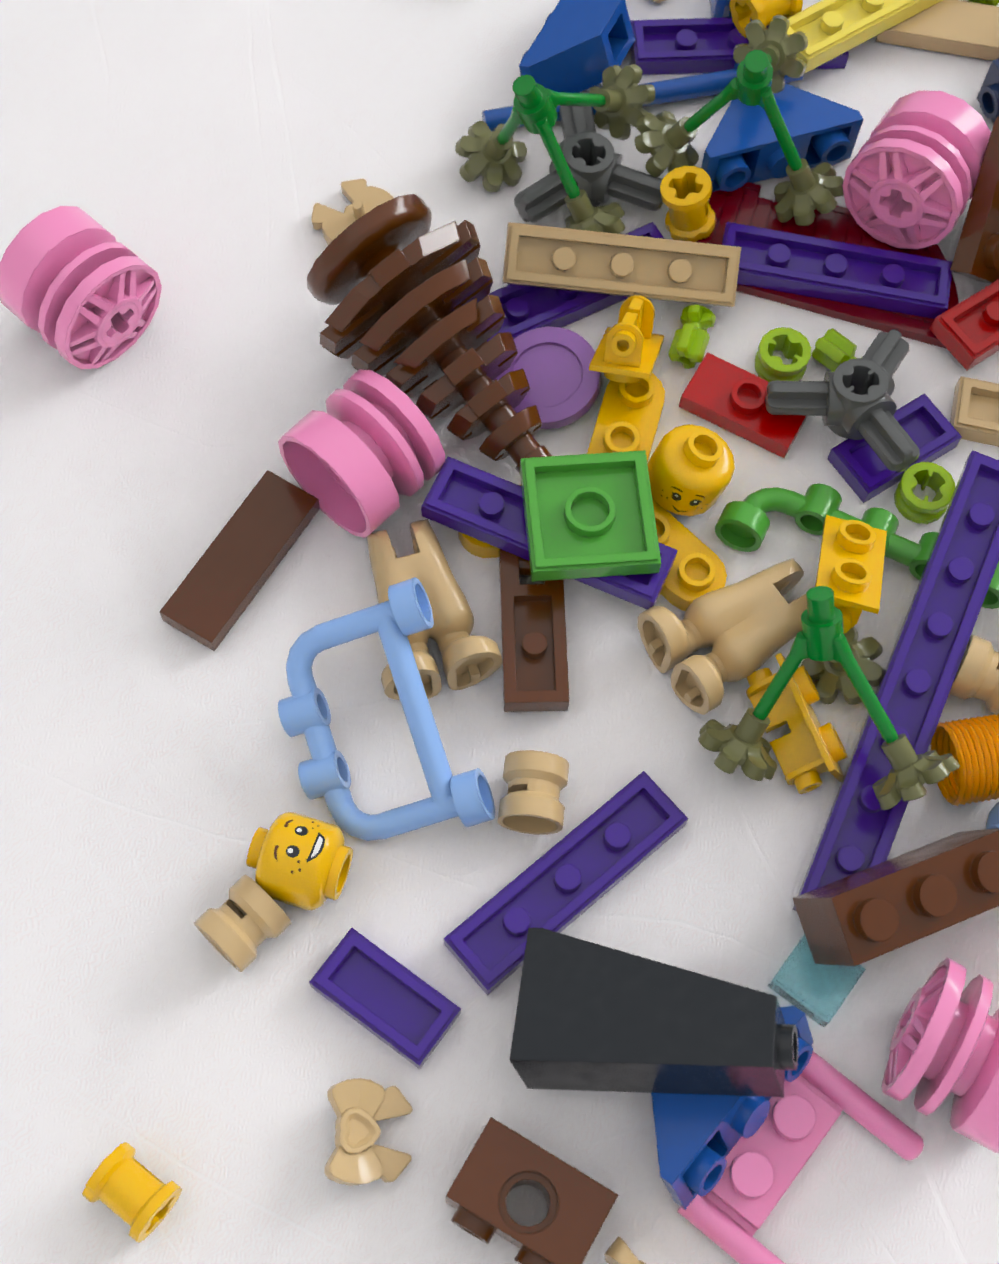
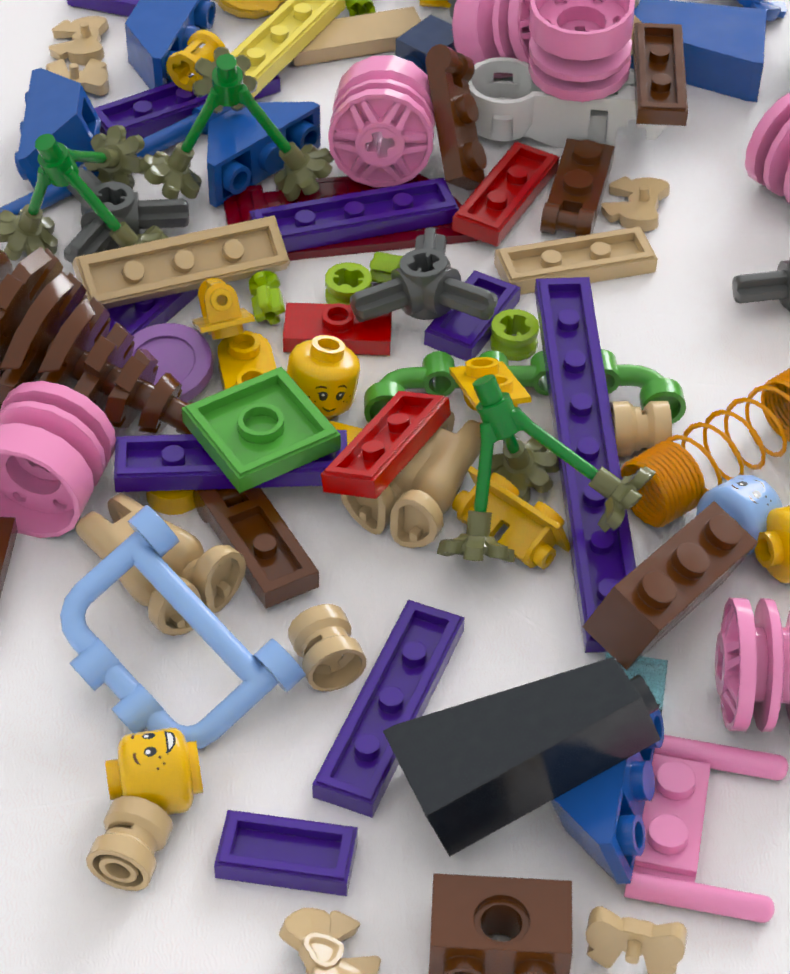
camera: 25 degrees left, 20 degrees down
(687, 196) = (209, 200): yellow bush -> none
(704, 592) = (386, 445): none -> red tile

